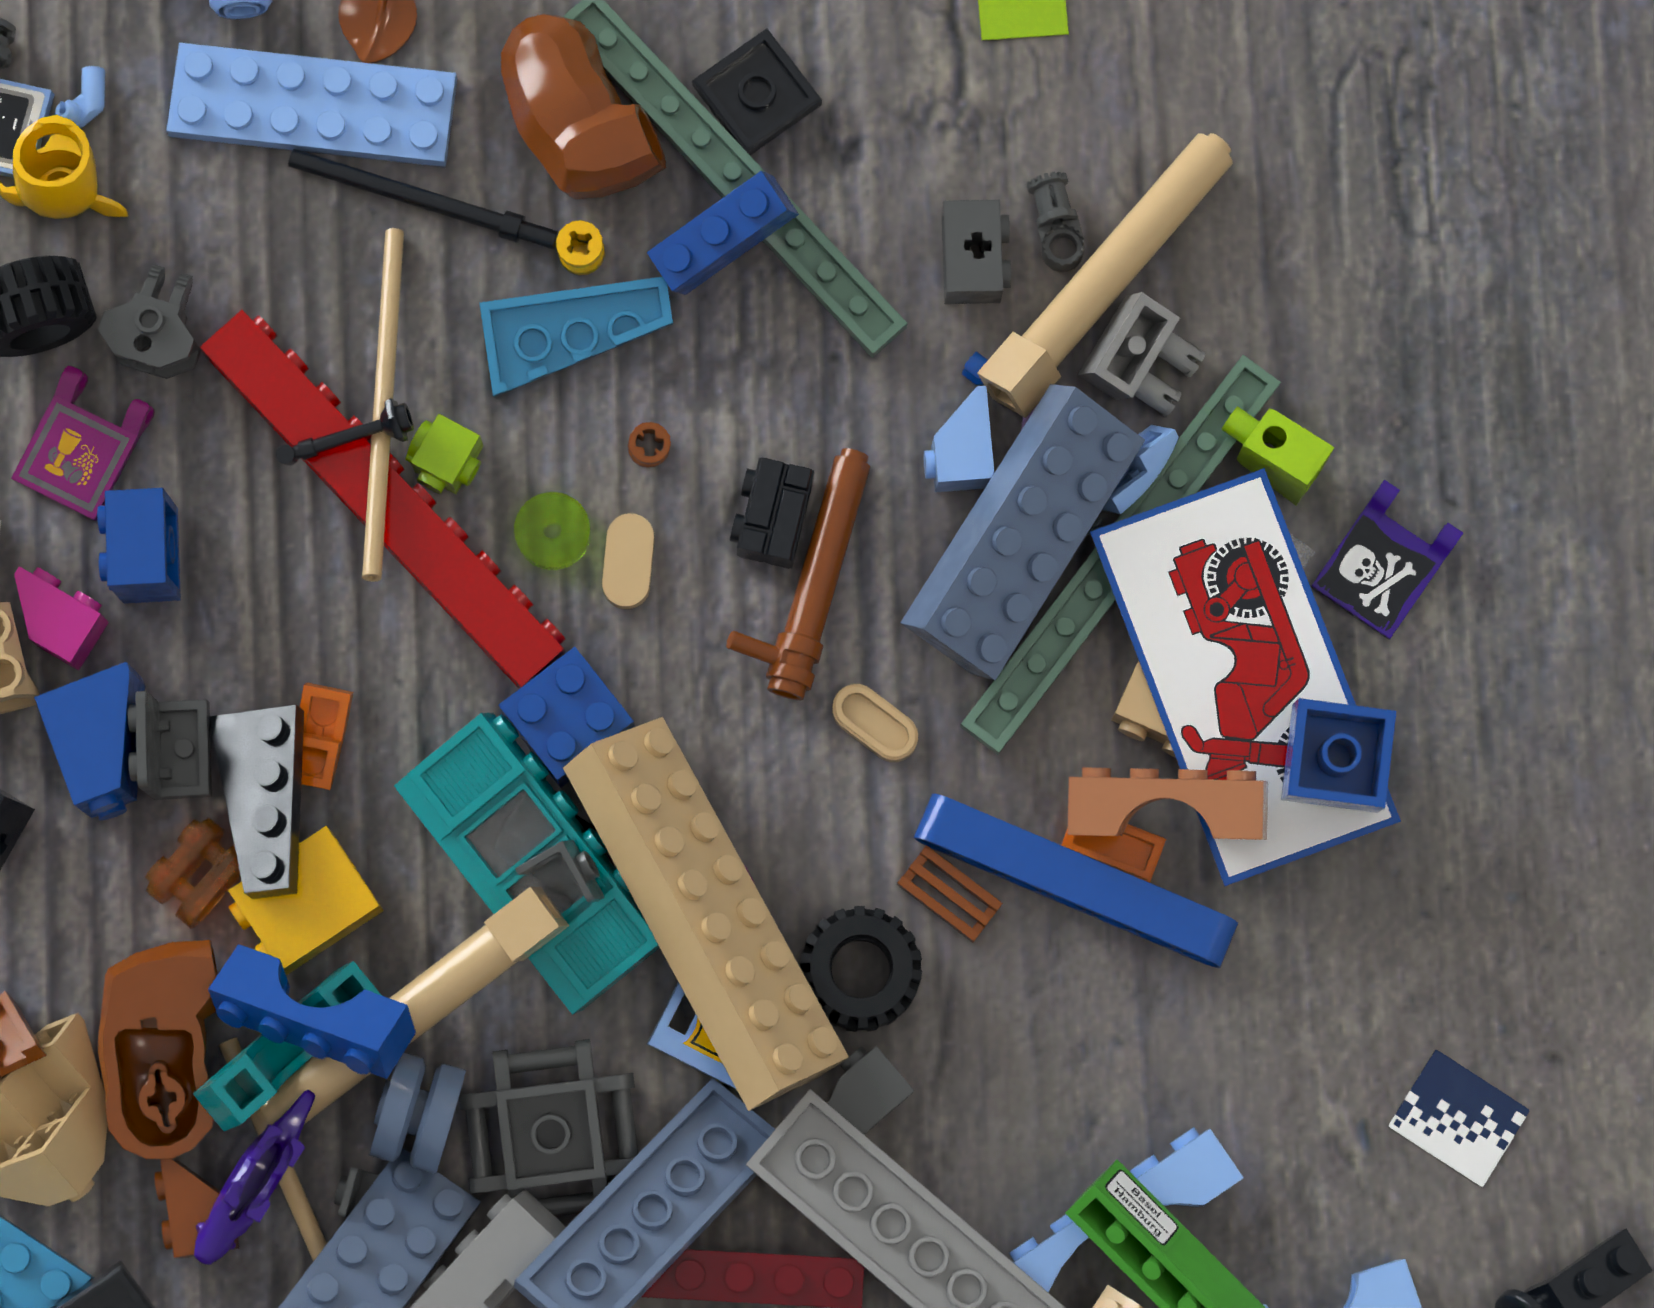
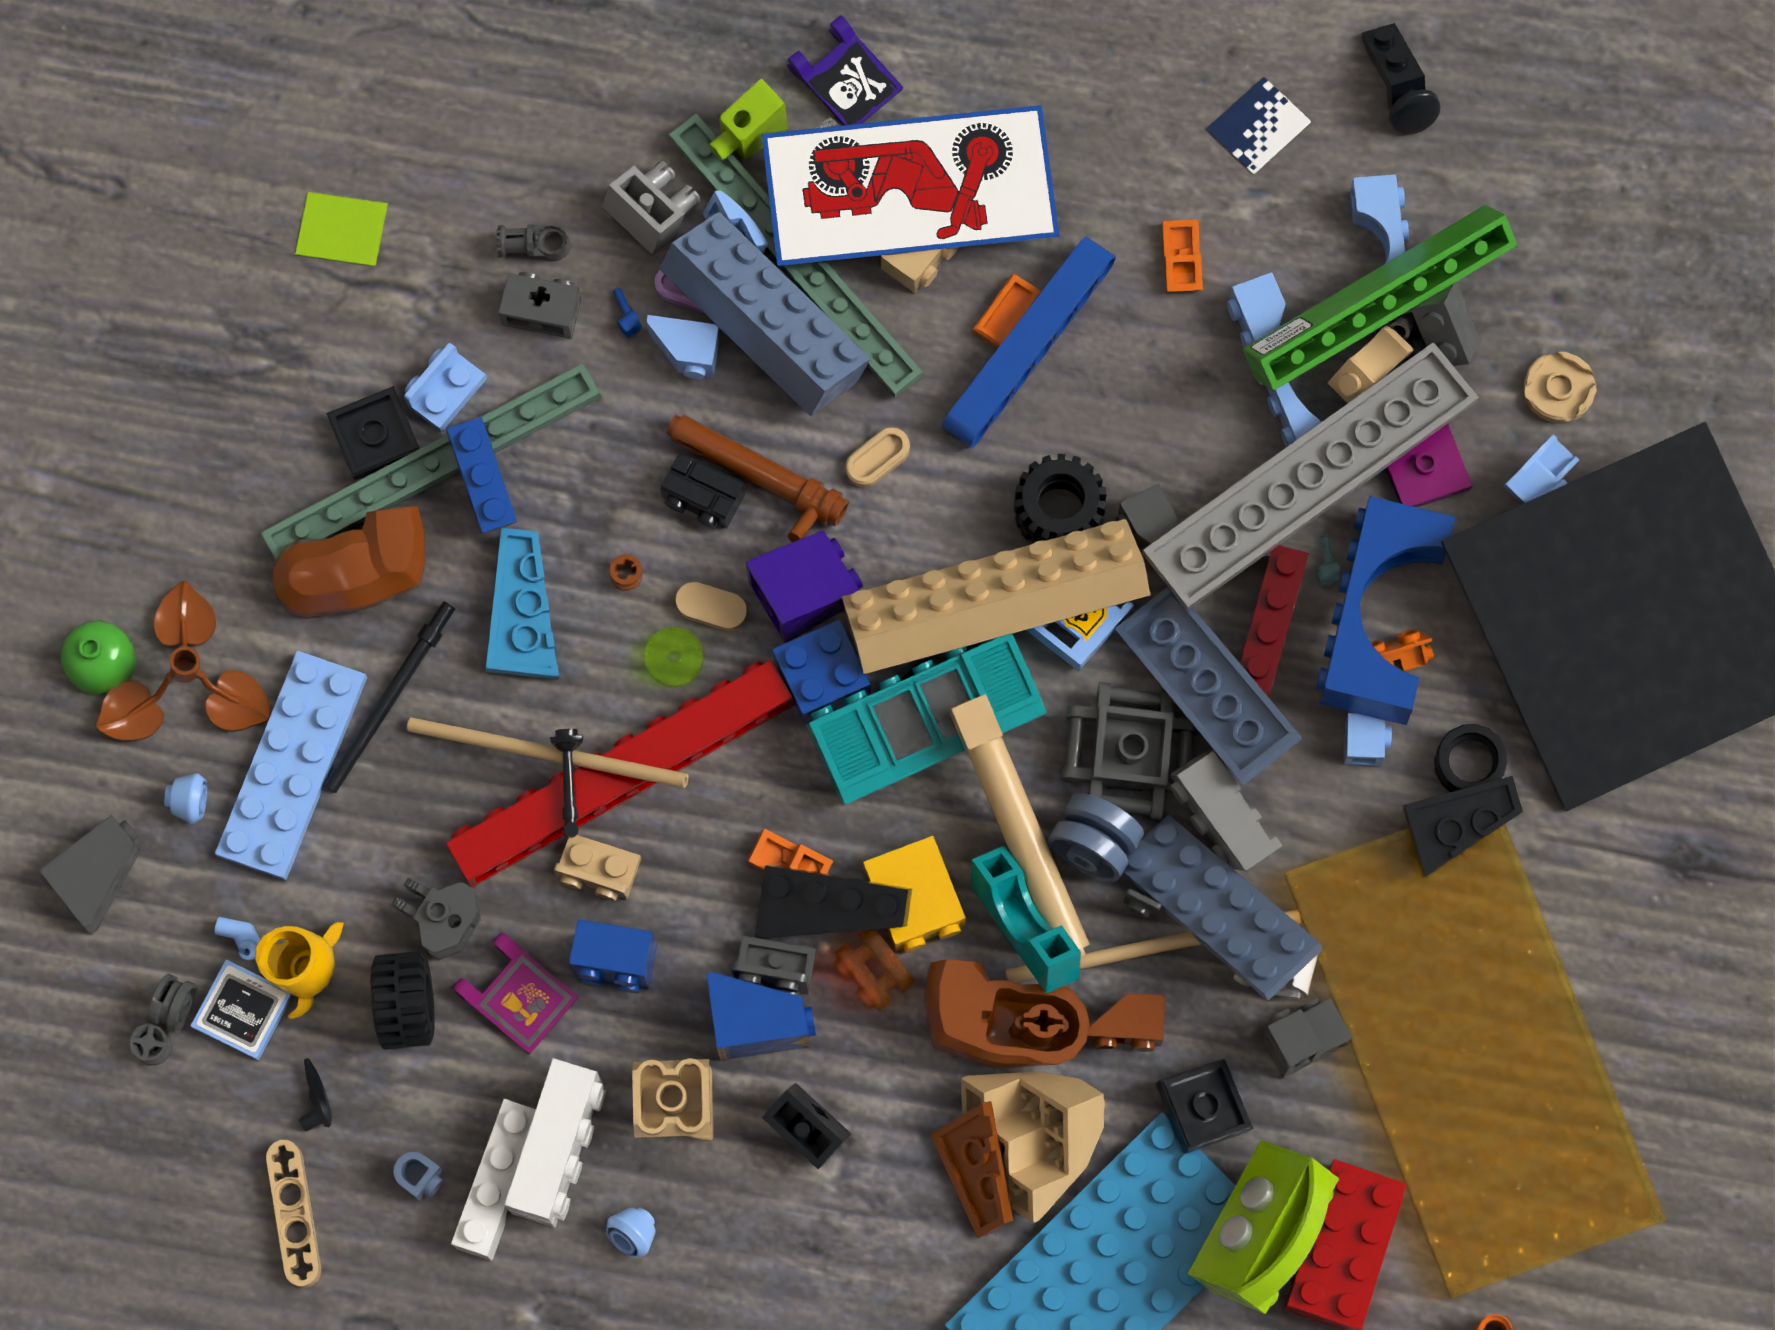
camera: 70 degrees left, 5 degrees down
(56, 621) = (652, 1036): dark pink slope -> none
(252, 1182) = (1122, 964): dark purple animal -> none
(258, 503) = (597, 867): none -> tan bracket
(362, 1032) = (1031, 855): blue arch -> none
(444, 455) = (597, 719): lime brick -> none
(580, 865) = (940, 670): dark grey bracket -> none
(584, 256) = (464, 594): yellow wheel -> none
(676, 666) = (802, 583): none -> dark purple slope
(837, 162) = (443, 387): none -> light blue bracket
(960, 878) = (1007, 423): dark orange tile -> none
(1028, 363) = (635, 283): tan brick -> none
(1106, 804) = (1006, 213): nougat arch -> none
(1246, 1054) = (1182, 255): none -> orange slope
(1338, 755) = (987, 129): blue brick -> none

